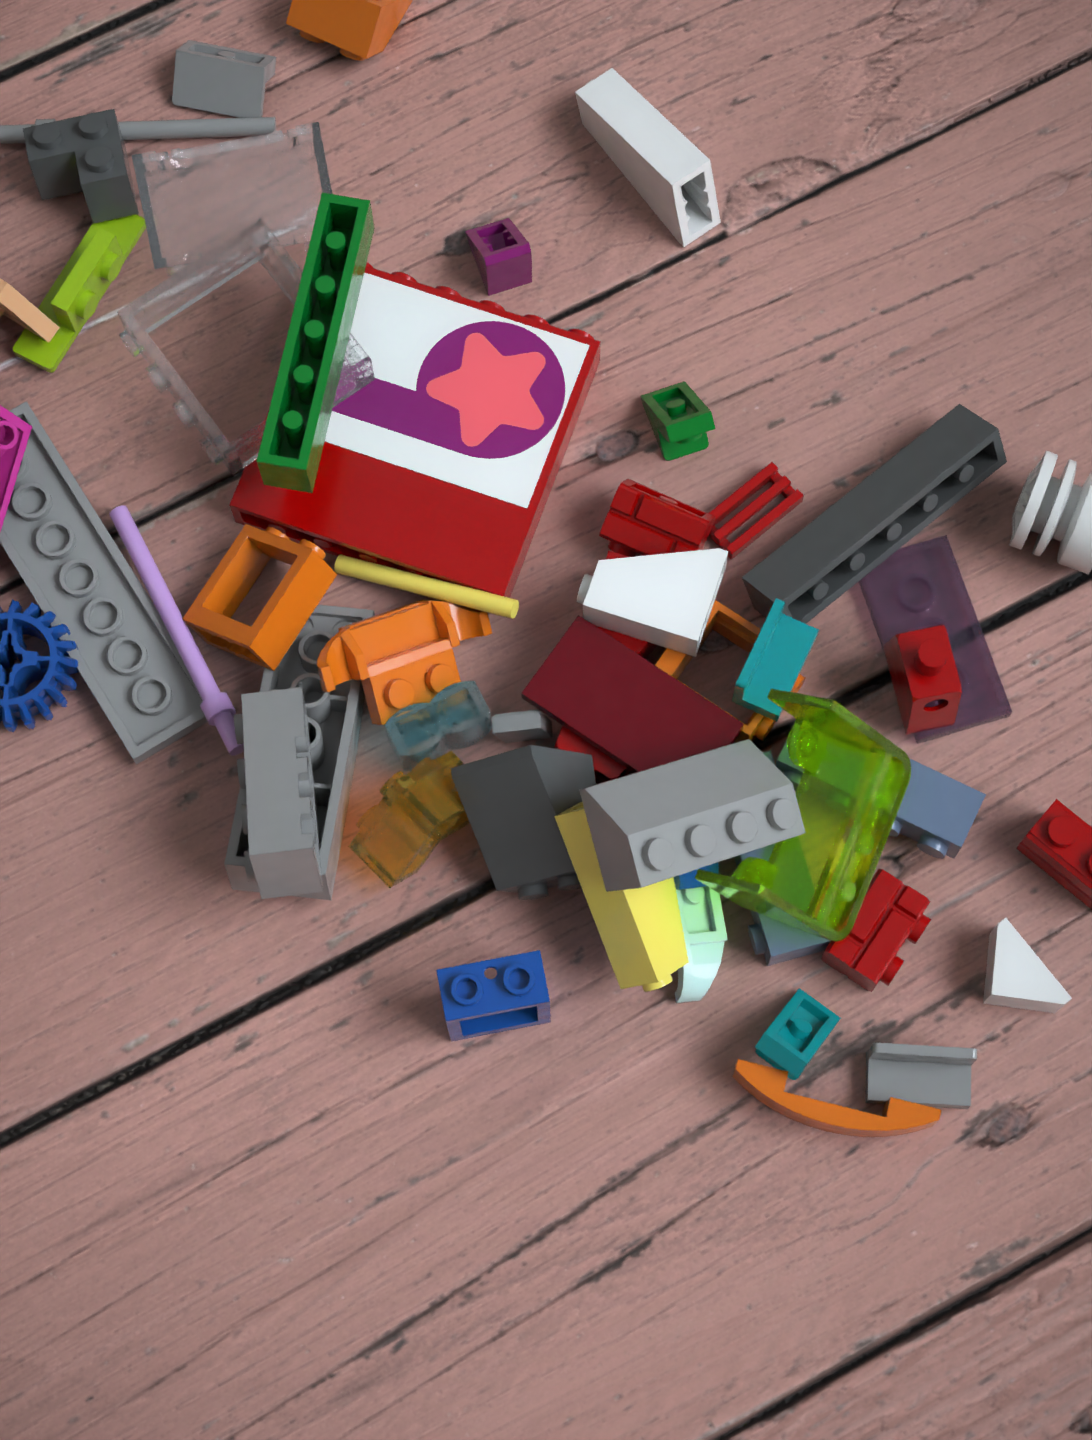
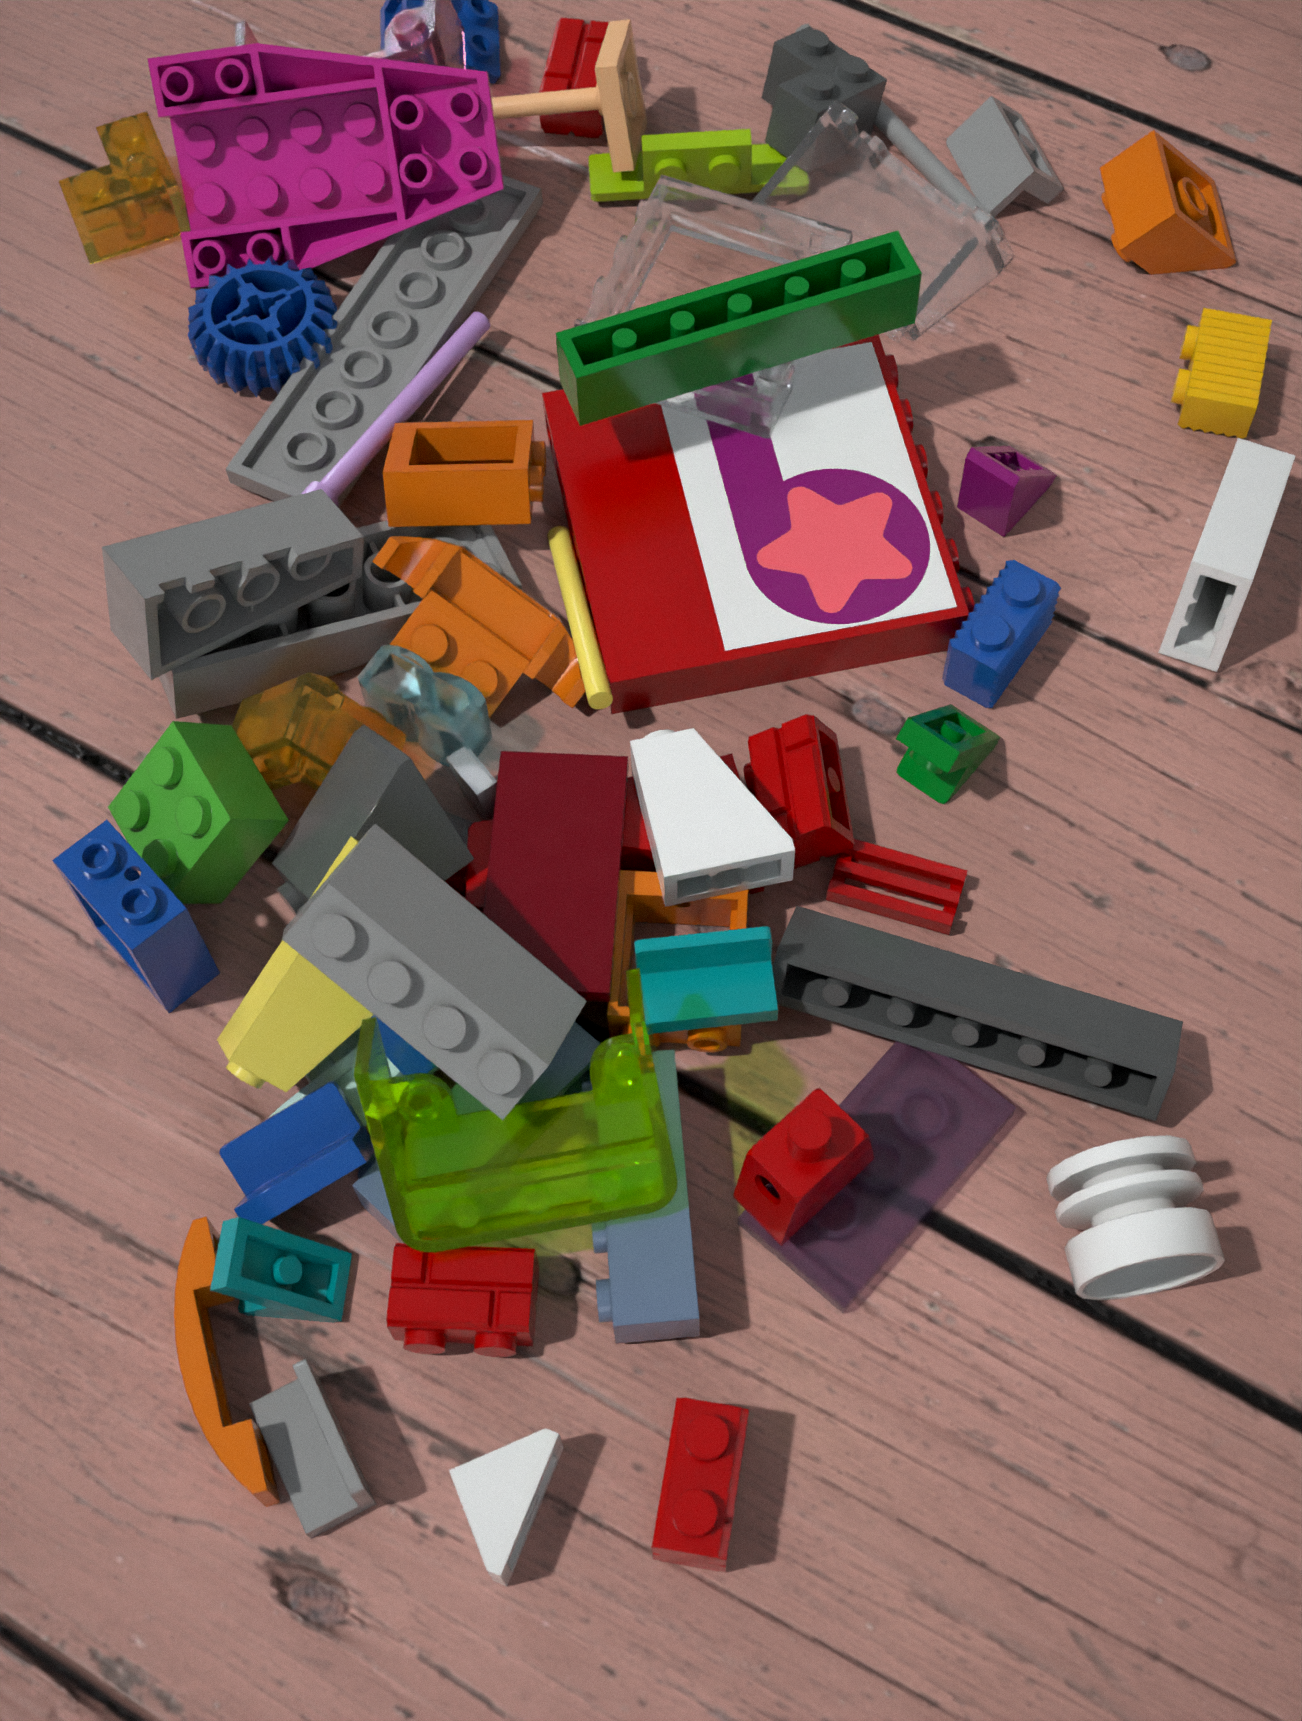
camera: 60 degrees right, 10 degrees down
(432, 915) = (198, 811): none -> bright green brick
(506, 63) = (1223, 372): none -> yellow brick
(624, 336) = (1000, 633): none -> blue brick
(726, 983) = (296, 1153): none -> blue panel

